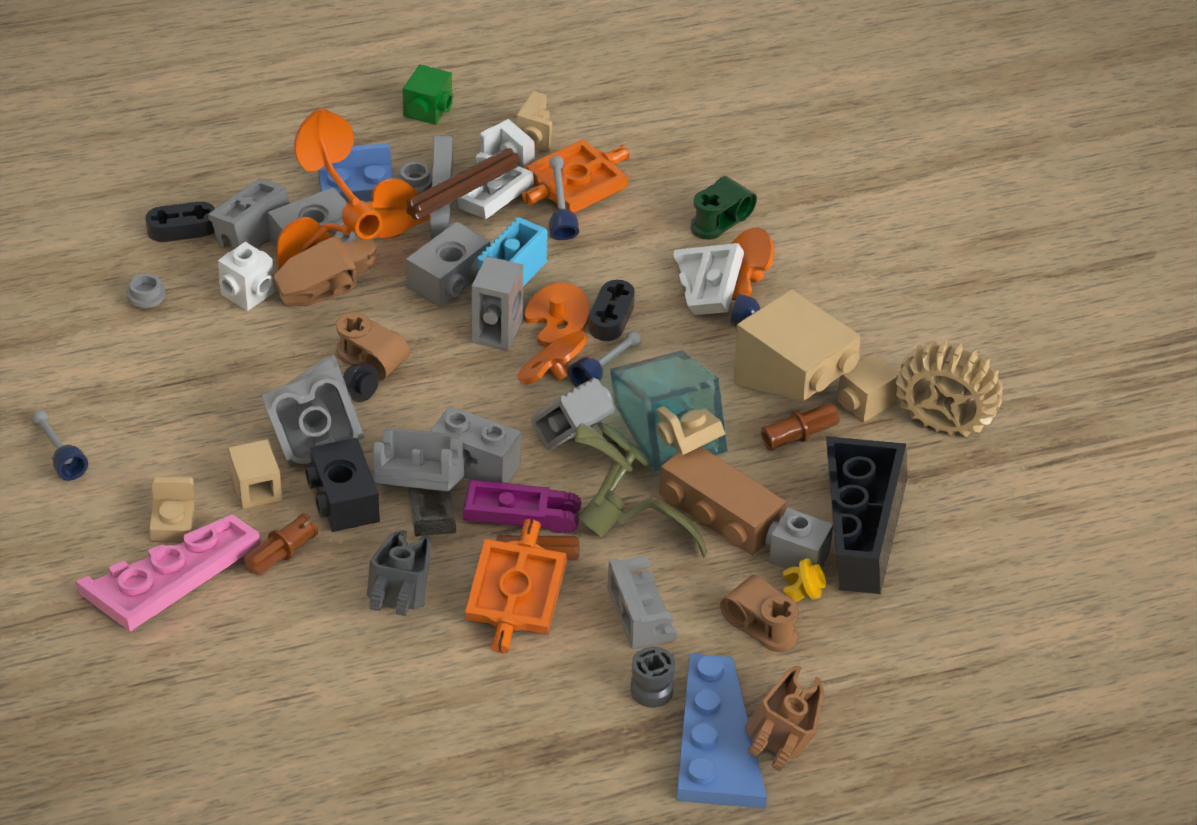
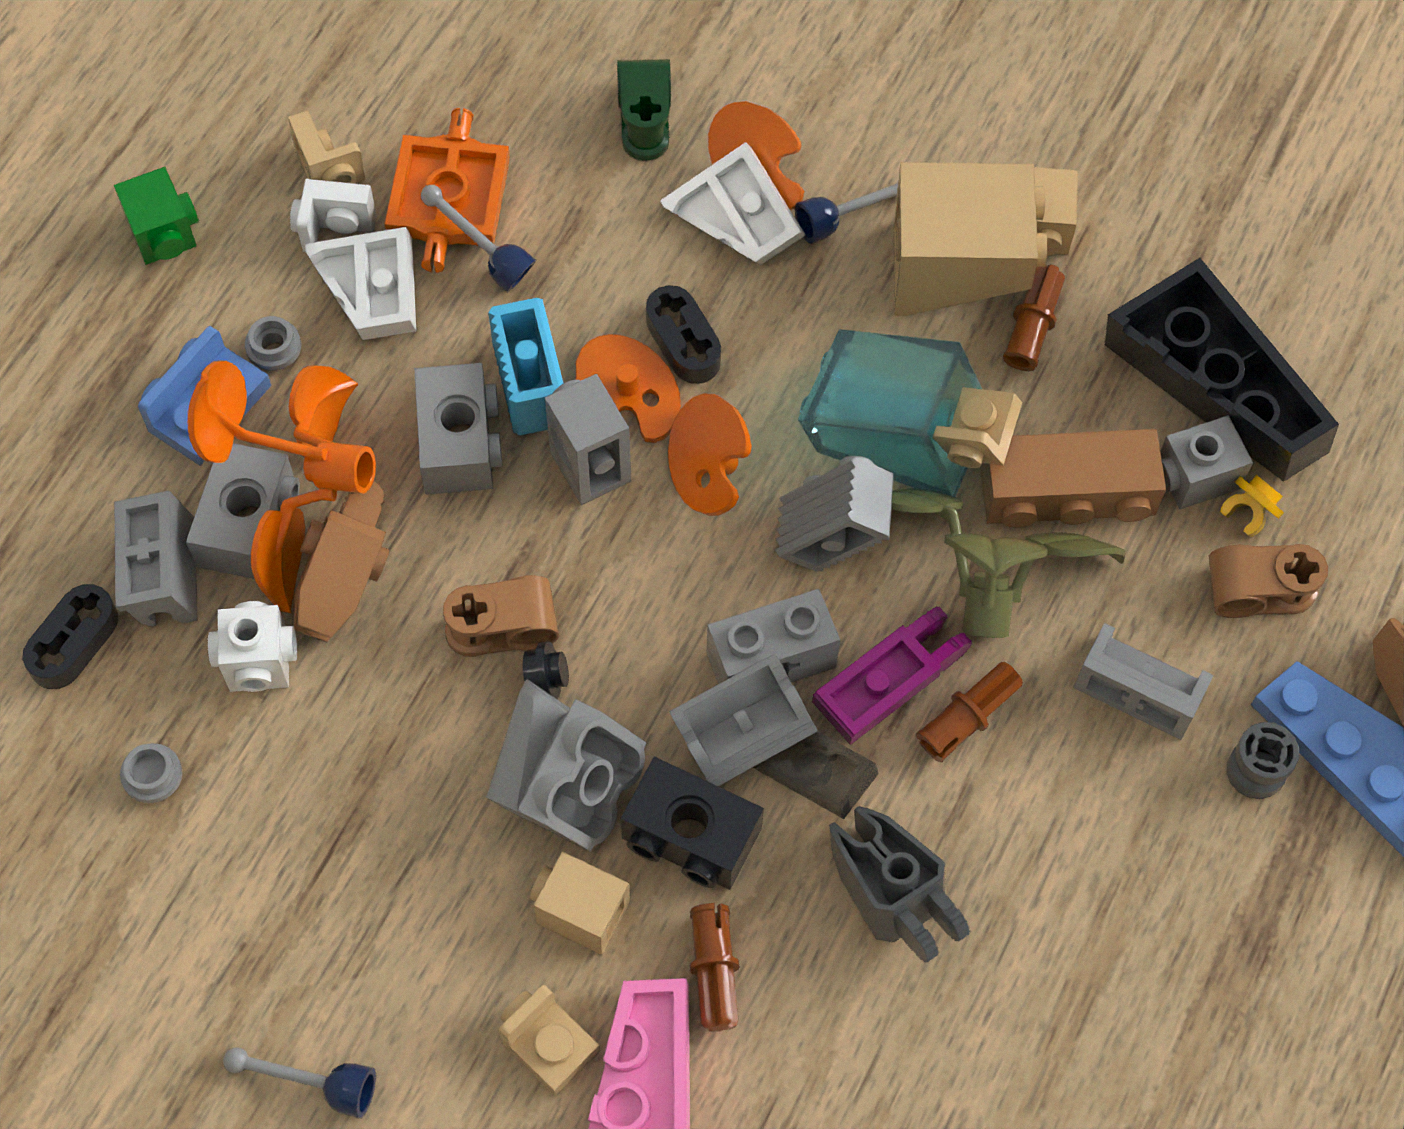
camera: 45 degrees left, 20 degrees up
(441, 171) = (321, 329): light grey beam -> none
(462, 183) = (364, 313): reddish brown axle -> none
(516, 586) = (1017, 782): orange plate -> none
(587, 368) = (762, 432): dark blue hinge -> none
(953, 379) = (1146, 149): tan gear -> none

